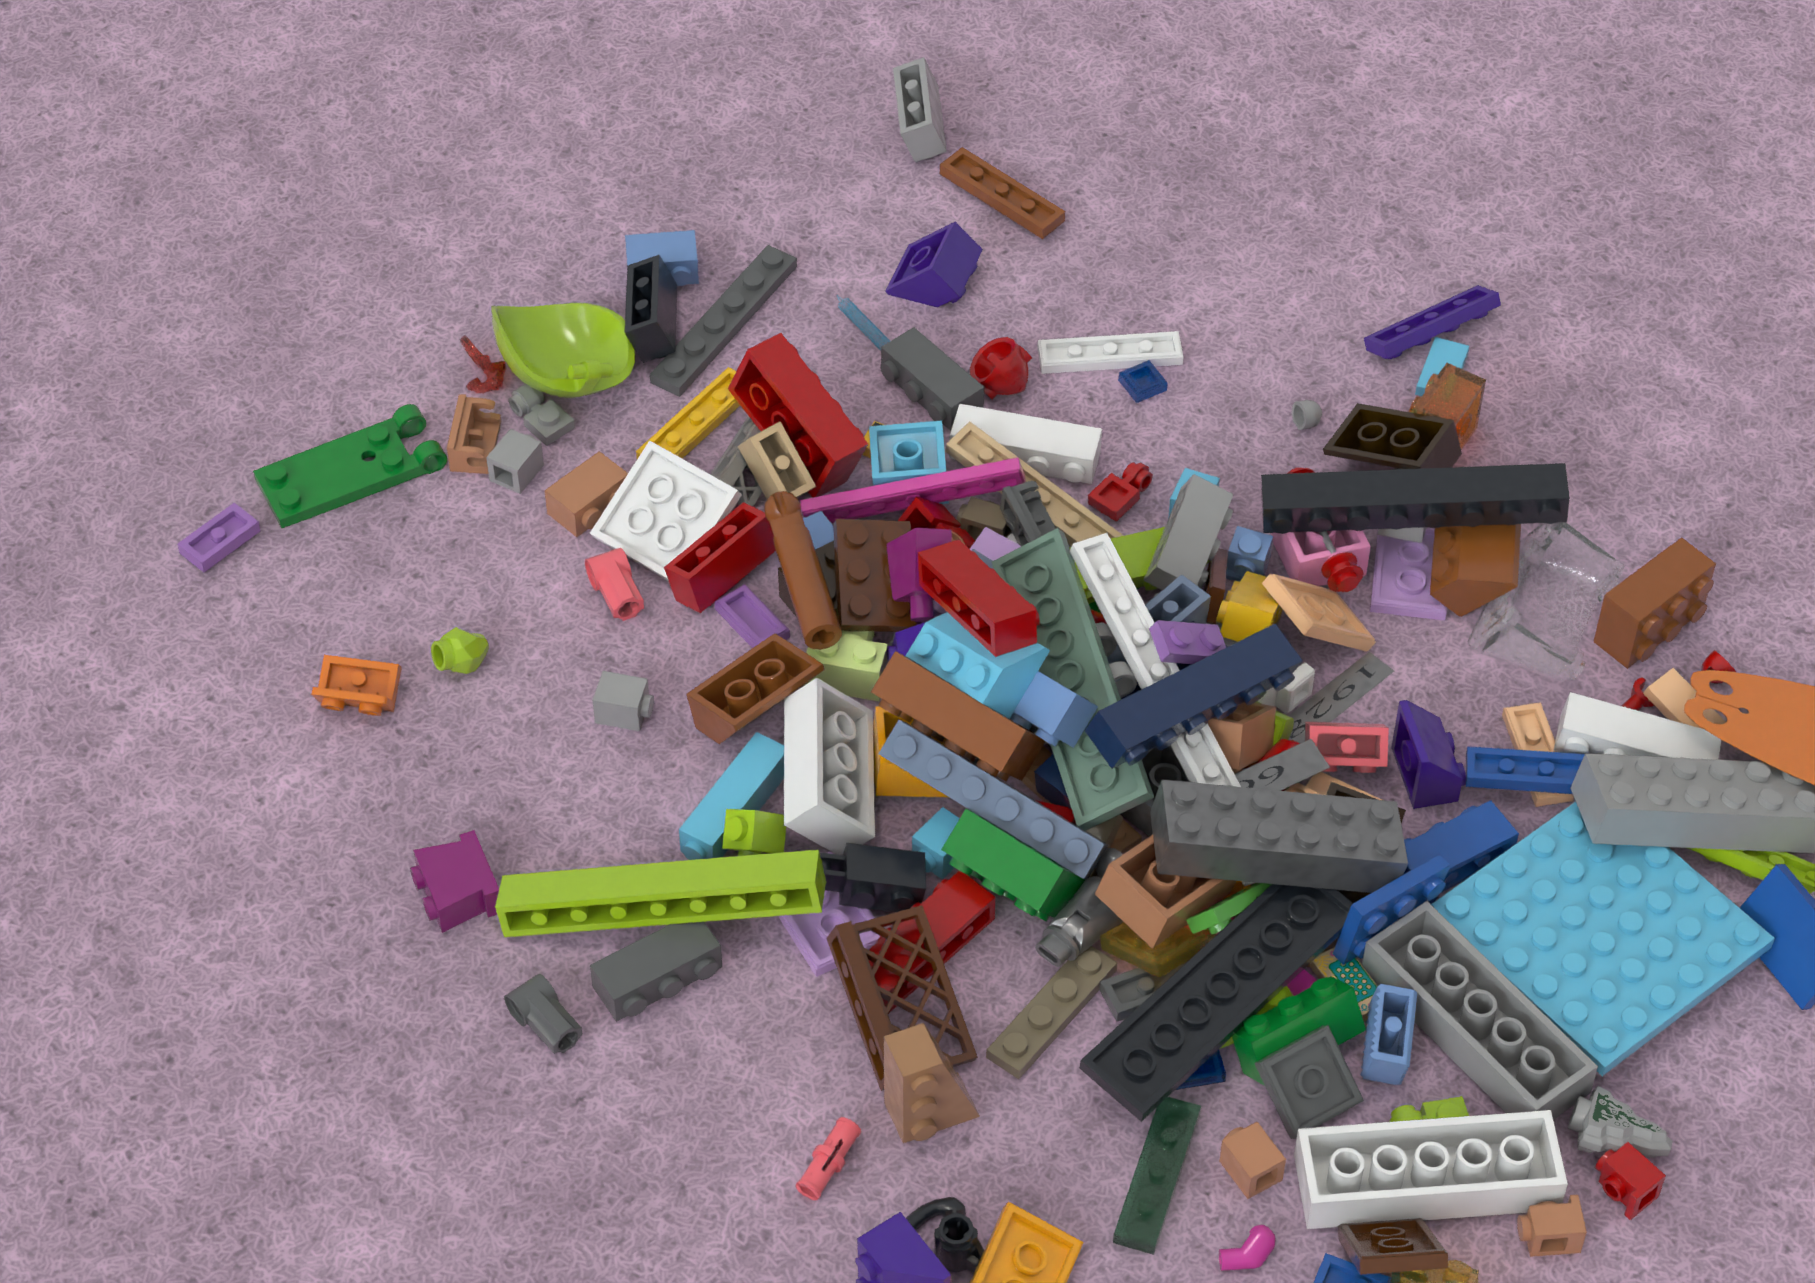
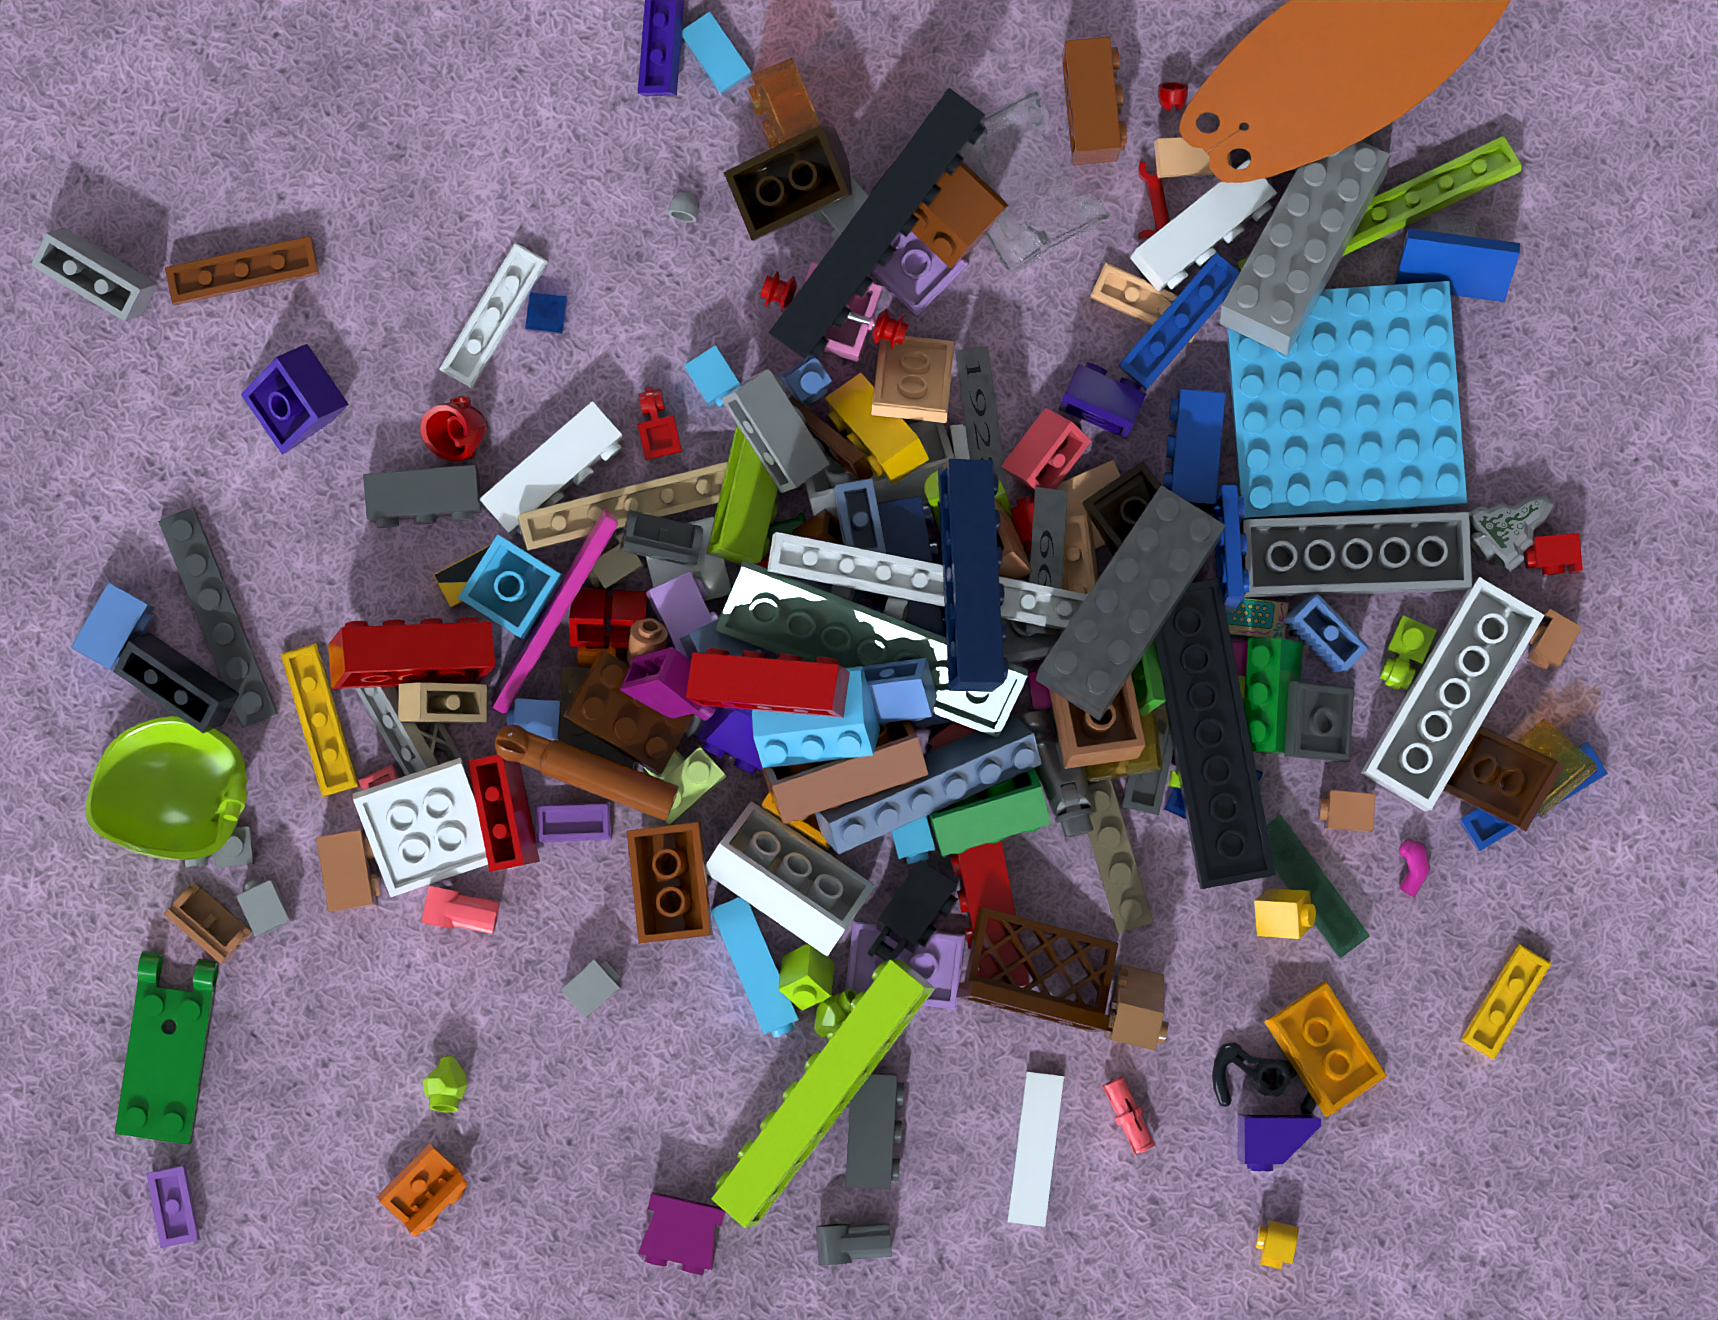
camera: 55 degrees left, 35 degrees up
(493, 371) = (135, 864): clear red piece -> none
(738, 1107) = (1035, 1149): none -> white tile
(869, 323) = (307, 504): medium azure piece -> none
(1114, 1156) = (1284, 913): none -> yellow brick
(1185, 641) = (911, 535): medium lavender plate -> none

